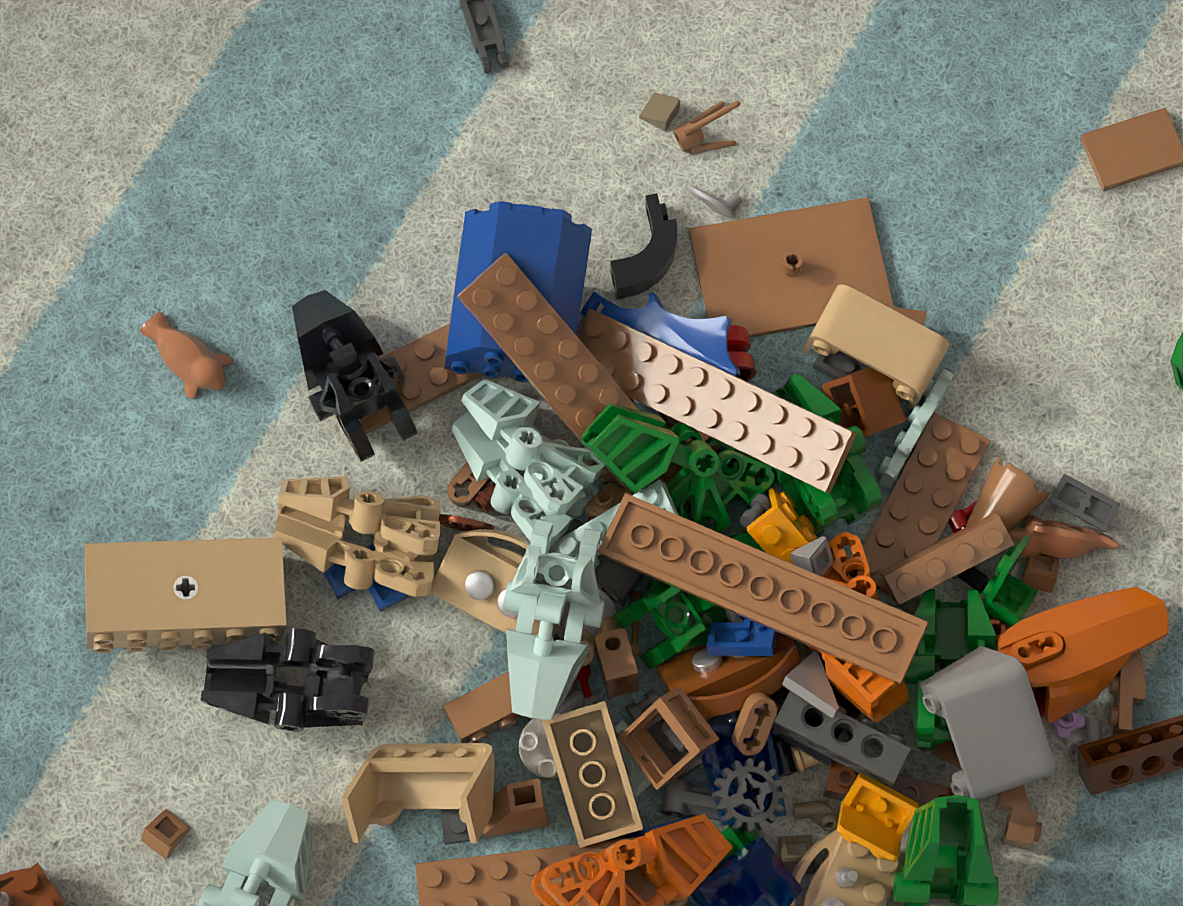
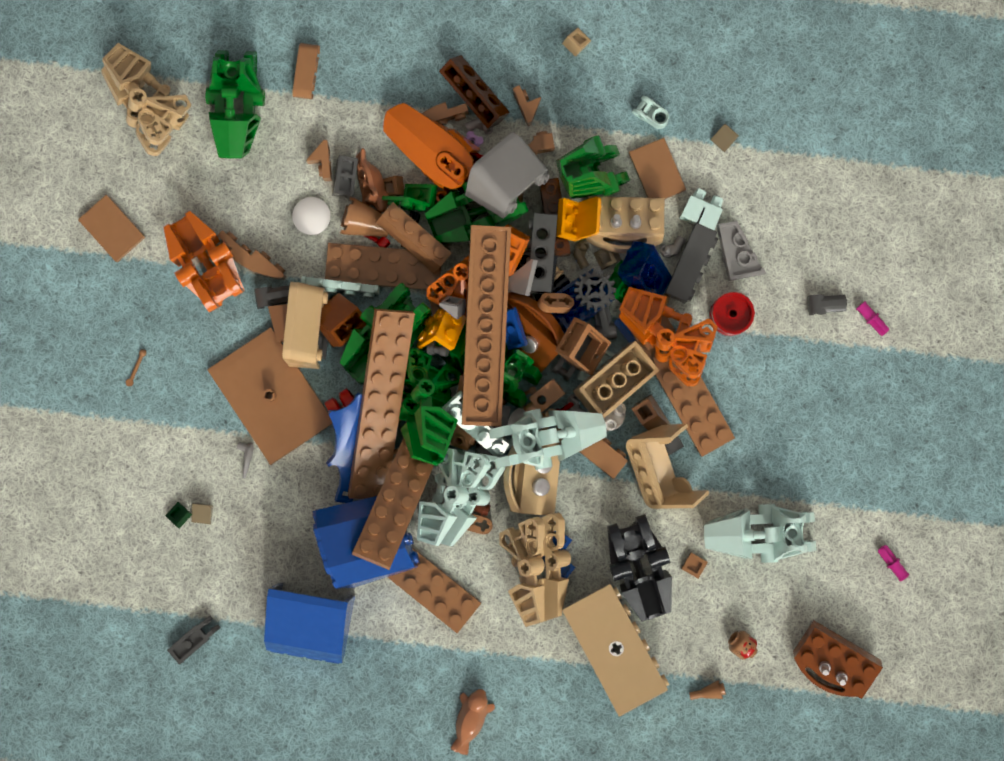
camera: 115 degrees left, 15 degrees up
(52, 723) = (712, 691): none -> medium nougat cone
(97, 798) = (742, 645): none -> medium nougat head
(164, 833) = (743, 600): medium nougat slope -> none
(254, 779) = (694, 565): none -> medium nougat tile
(364, 381) = (427, 643): black piece -> none
(431, 176) = (307, 625): none -> blue windscreen
(462, 523) = (504, 512): copper wheel -> none
(647, 268) = (307, 478): black arch -> none
(671, 77) = (178, 515): none -> dark green plate
(690, 133) = (211, 489): medium nougat plant -> none
(894, 88) = (129, 382): none -> medium nougat hinge
(943, 320) = (271, 296): none -> dark grey piece
(1002, 323) = (256, 261): none -> medium nougat slope
(1042, 433) = (311, 215): none -> white dish
(1072, 234) = (191, 239): none -> orange piece
(1084, 827) = (529, 108): none -> medium nougat slope
(1130, 485) = (322, 155): none -> medium nougat slope

